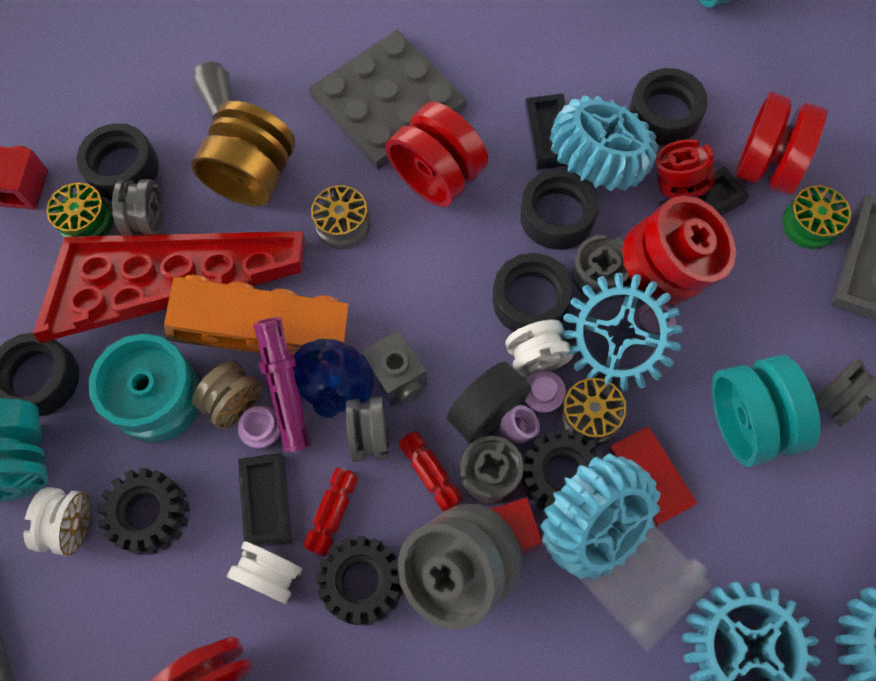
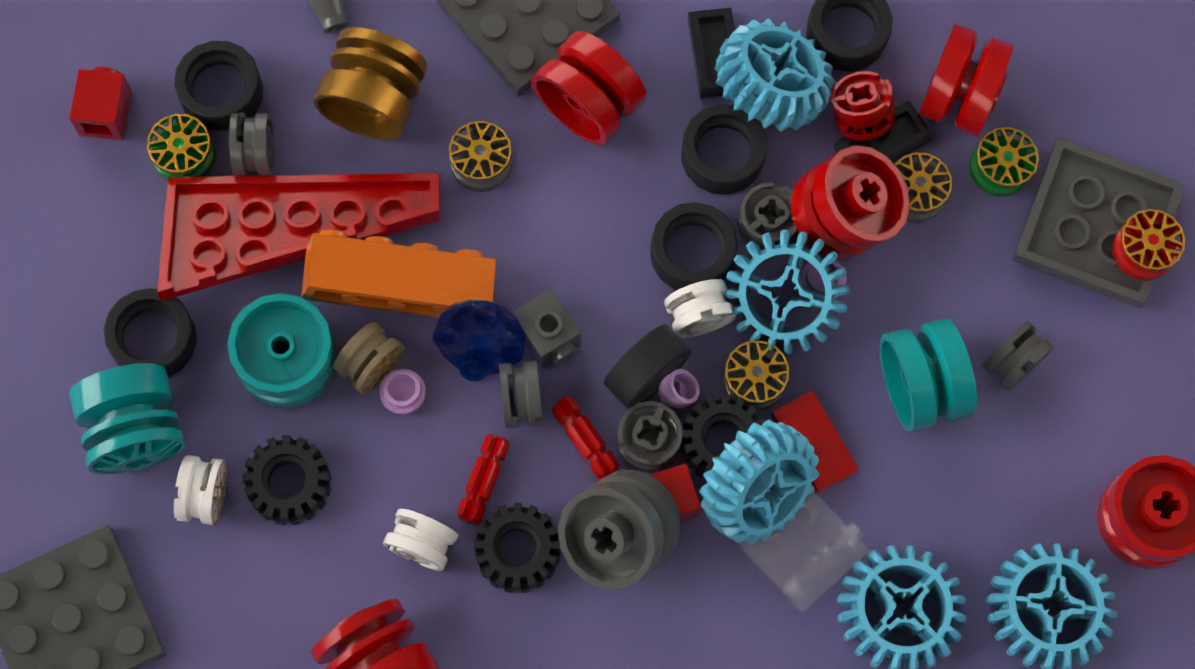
camera: 10 degrees left, 5 degrees up
(264, 500) = (412, 467): black tile -> none
(278, 367) = (427, 329): magenta pin -> none
(546, 392) = (707, 354): lavender plate -> none
(749, 239) = (925, 186): none -> wheel

